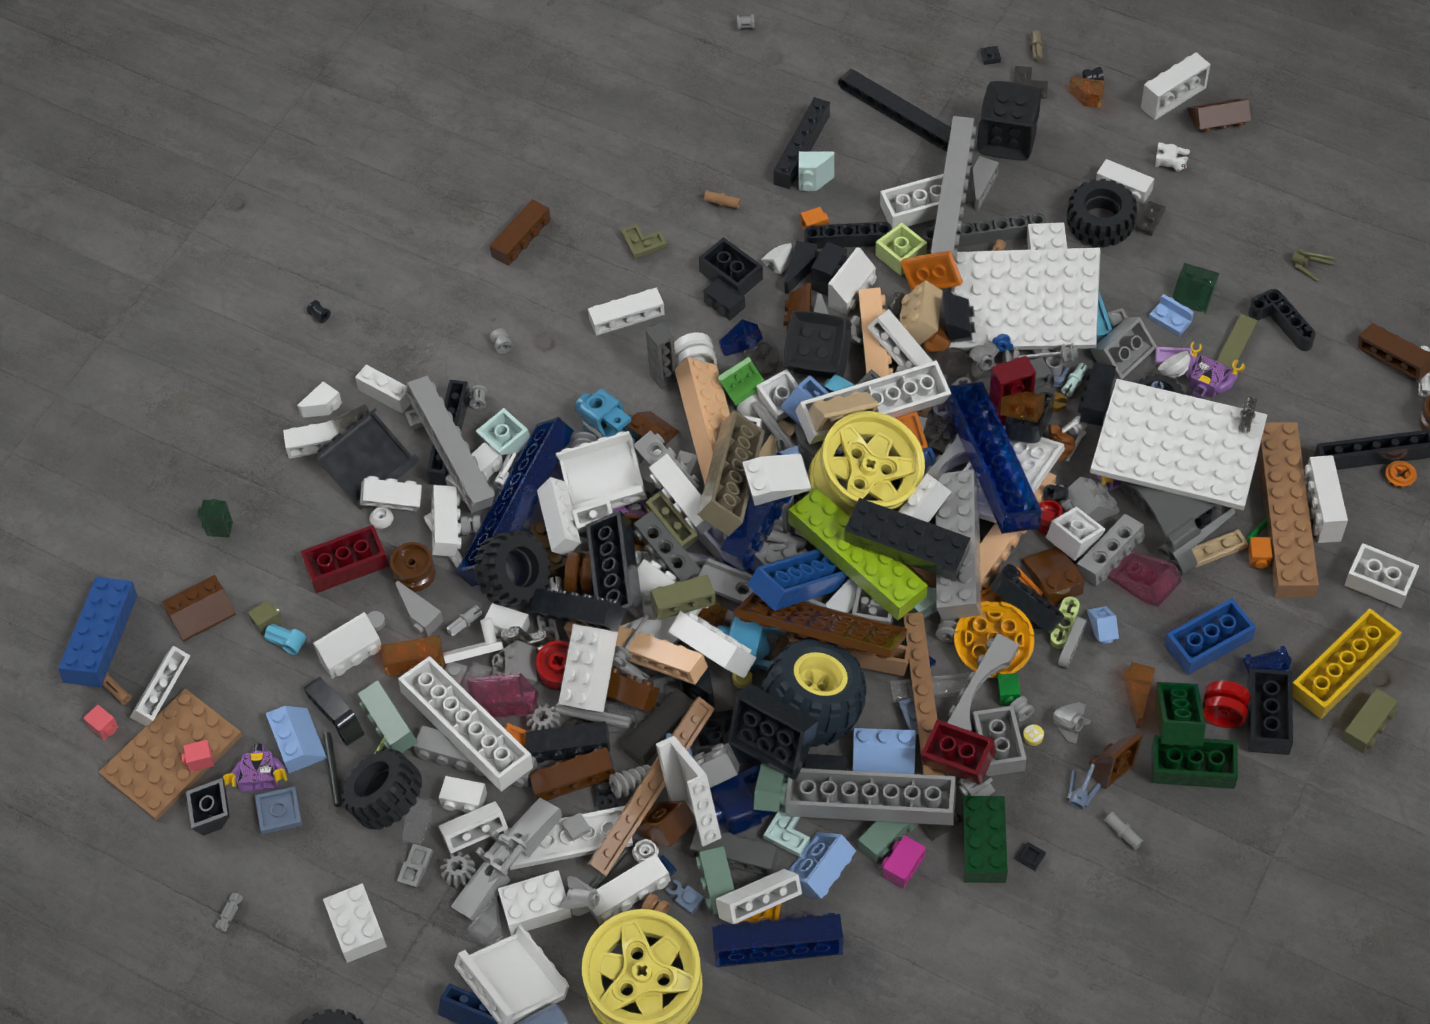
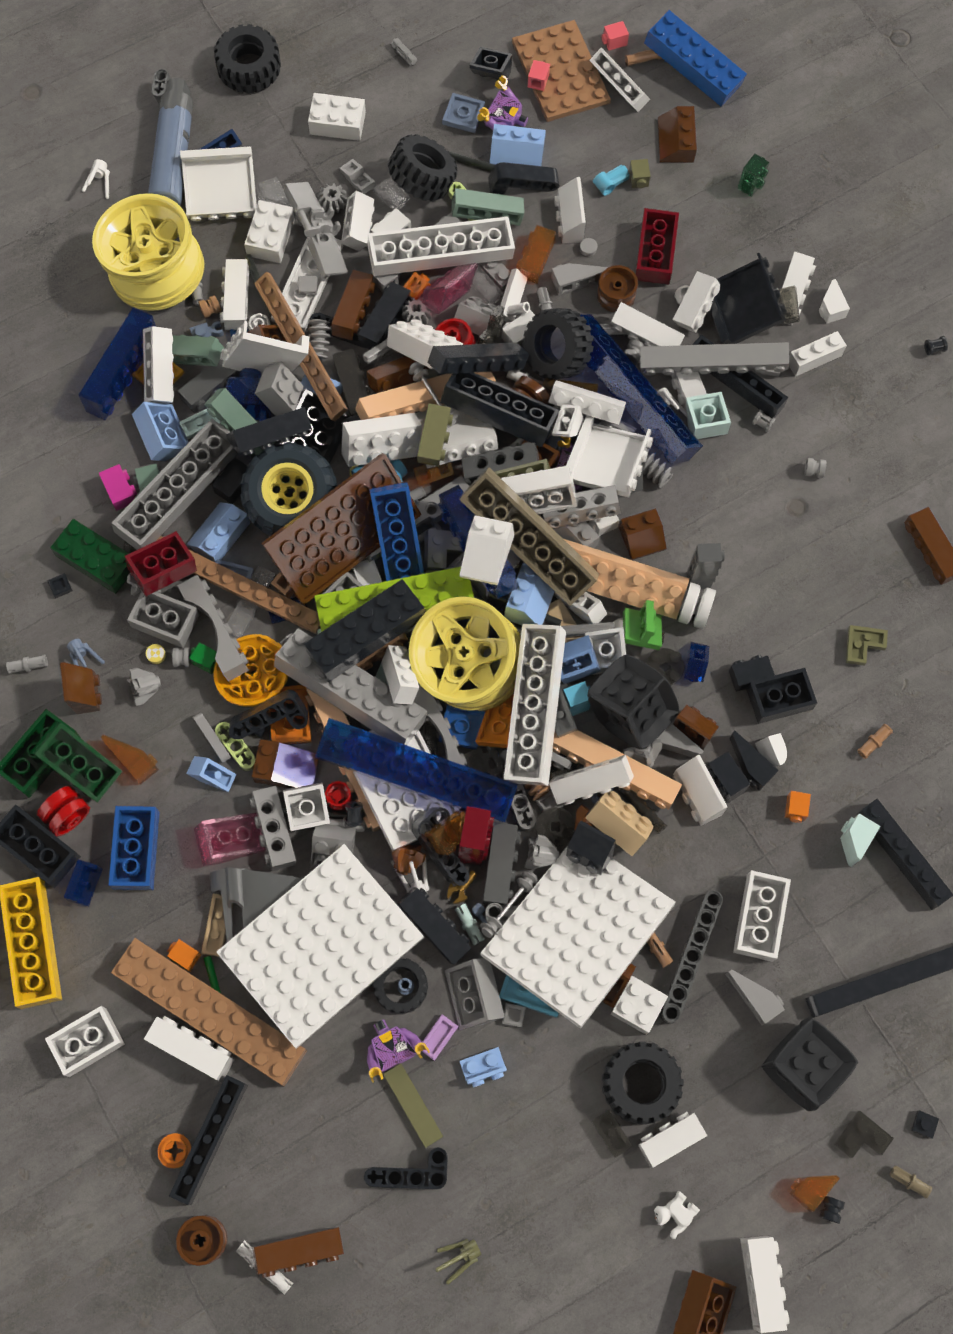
camera: 115 degrees right, 15 degrees up
(580, 897) = (242, 252): light grey brick -> none
(599, 409) = (672, 495): dark azure piece -> none
(626, 311) = (787, 584): white brick -> none
(827, 413) = (526, 652): tan slope -> none
(847, 234) = (766, 818): black beam -> none
(899, 244) = (713, 861): yellowish green brick -> none
(935, 268) = (660, 861): orange plate -> none
(953, 185) = (747, 943): light grey brick -> none
(1003, 342) = (541, 875): blue plate -> none
(1175, 365) = (424, 1020): white piece -> none
(1195, 287) = (498, 1112): clear green slope -> none
(1247, 414) = (300, 1021): clear smoke axle -> none

